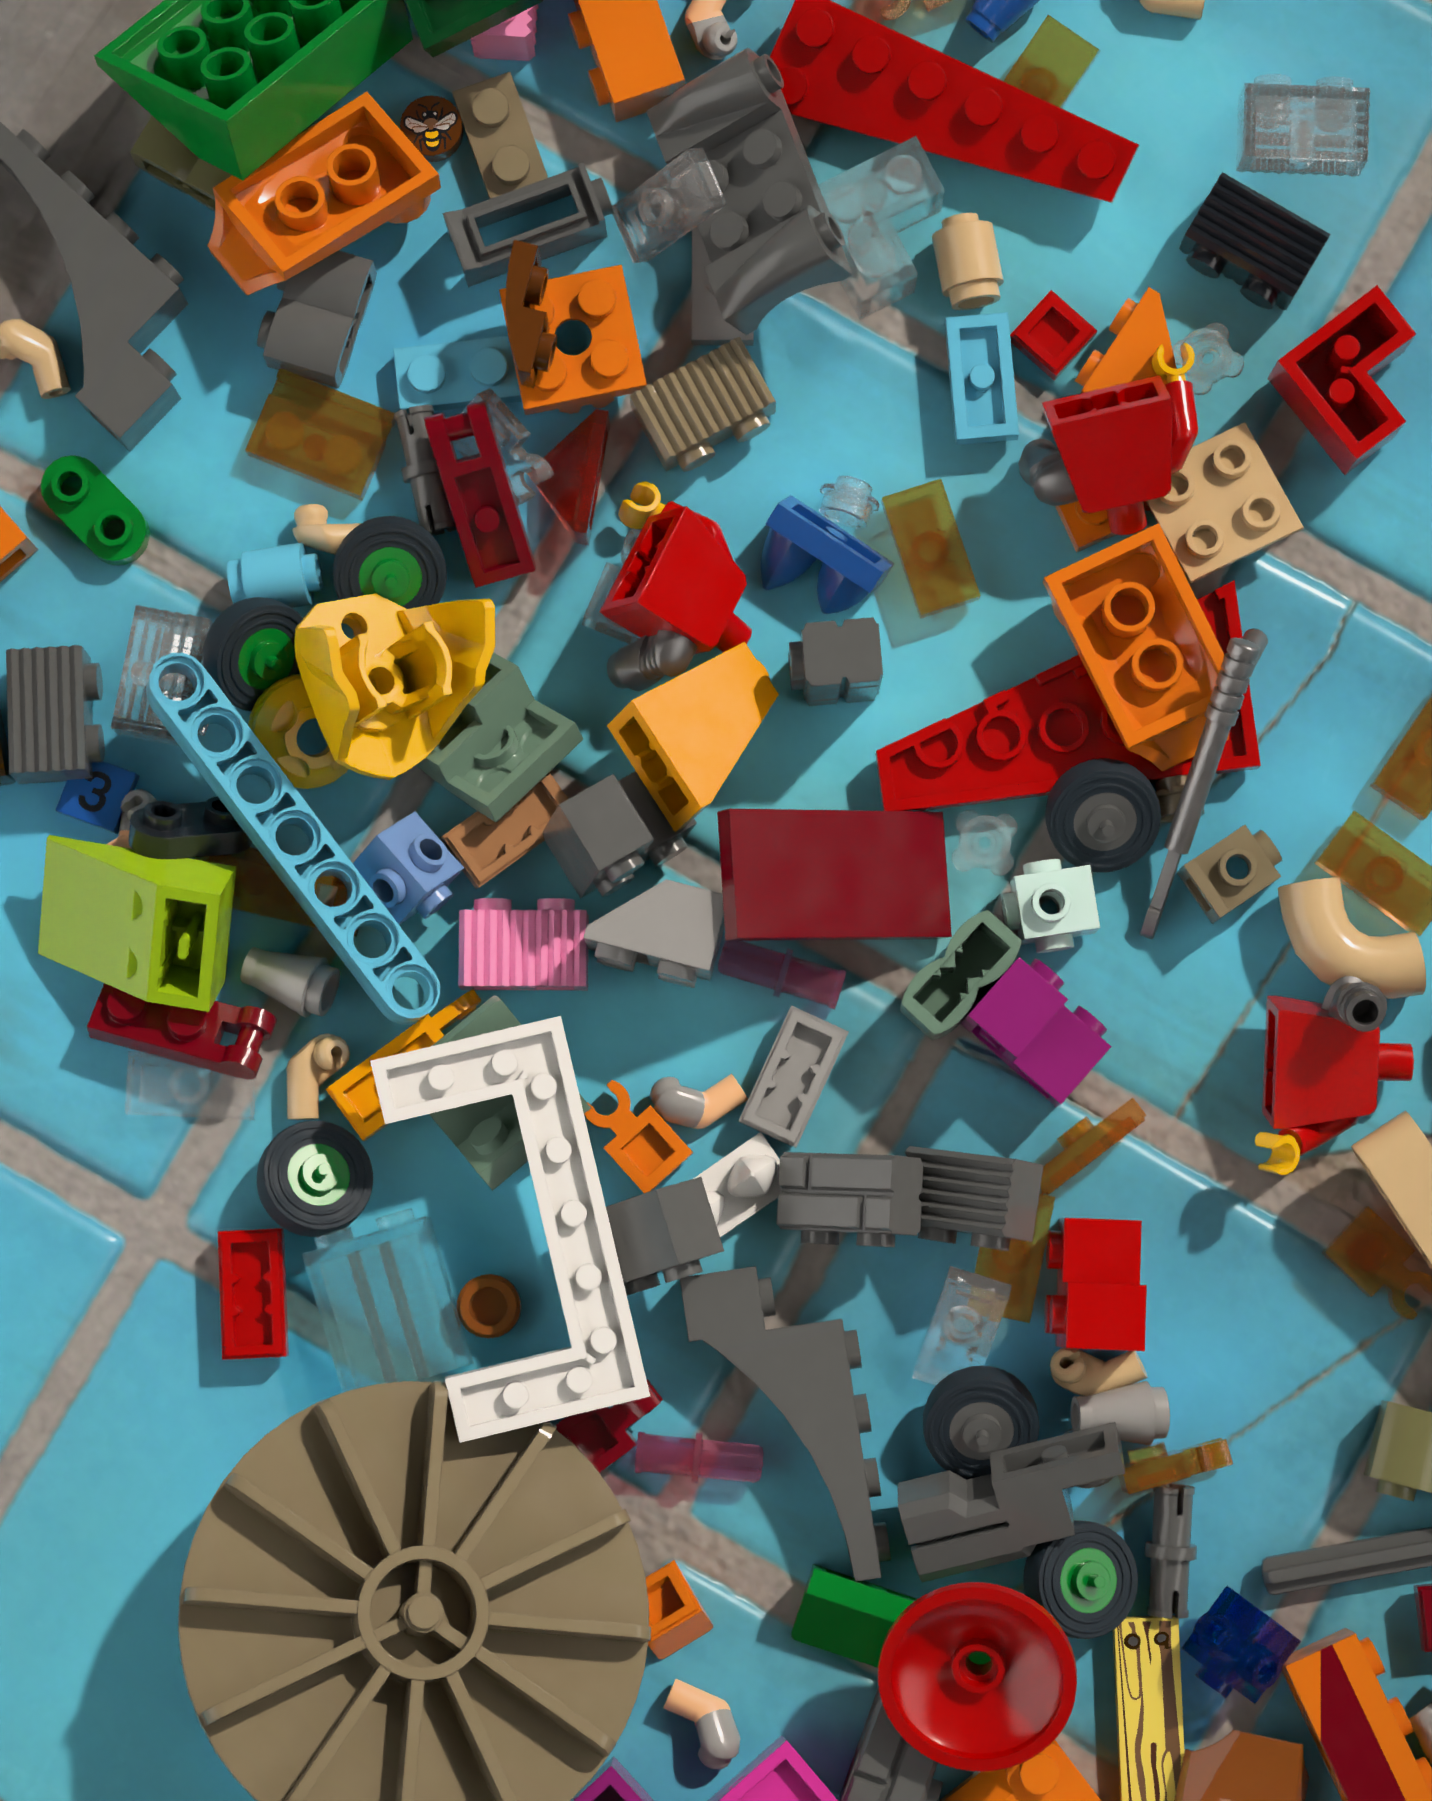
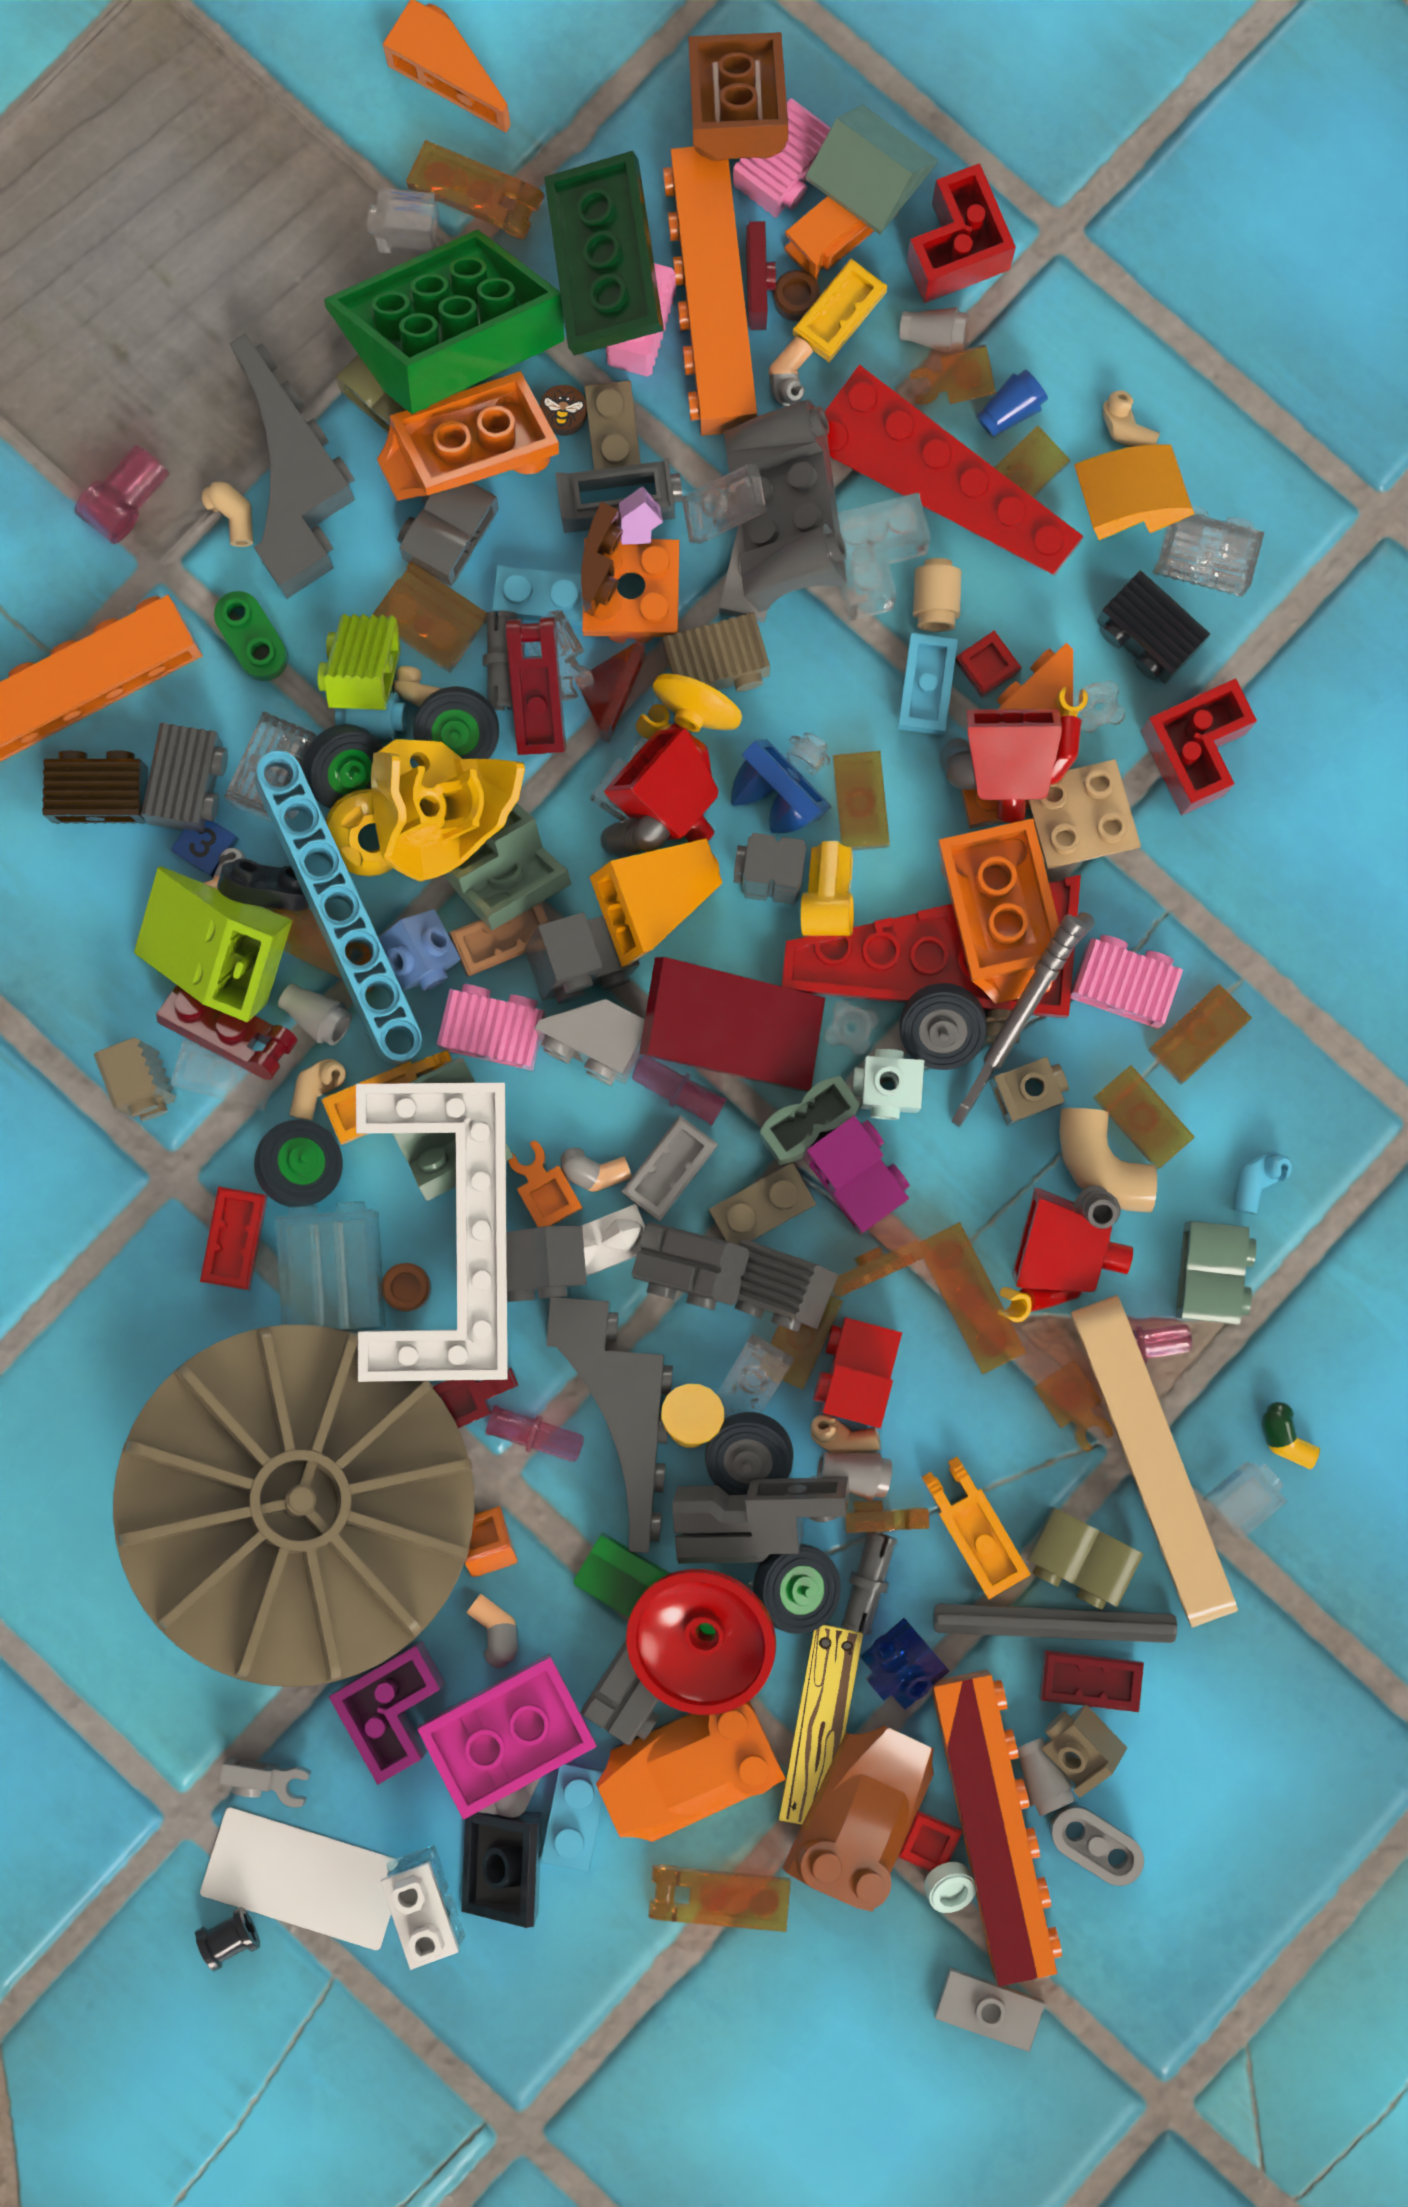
camera: 10 degrees right, 0 degrees up
(80, 1118) = (135, 1079): none -> dark tan brick
(247, 514) = (360, 662): none -> lime brick
(564, 247) = (639, 516): none -> lavender piece
(692, 471) = (696, 703): none -> yellow dish
(896, 1387) = (692, 1415): none -> yellow piece
(919, 687) = (829, 903): none -> yellow piece
(923, 1098) = (763, 1206): none -> dark tan plate
(1188, 69) = (1133, 488): none -> light orange slope
(1217, 1157) = (970, 1298): none -> clear orange plate
(1295, 1455) = (978, 1533): none -> light orange hinge
(1323, 704) = (1126, 981): none -> bright pink brick

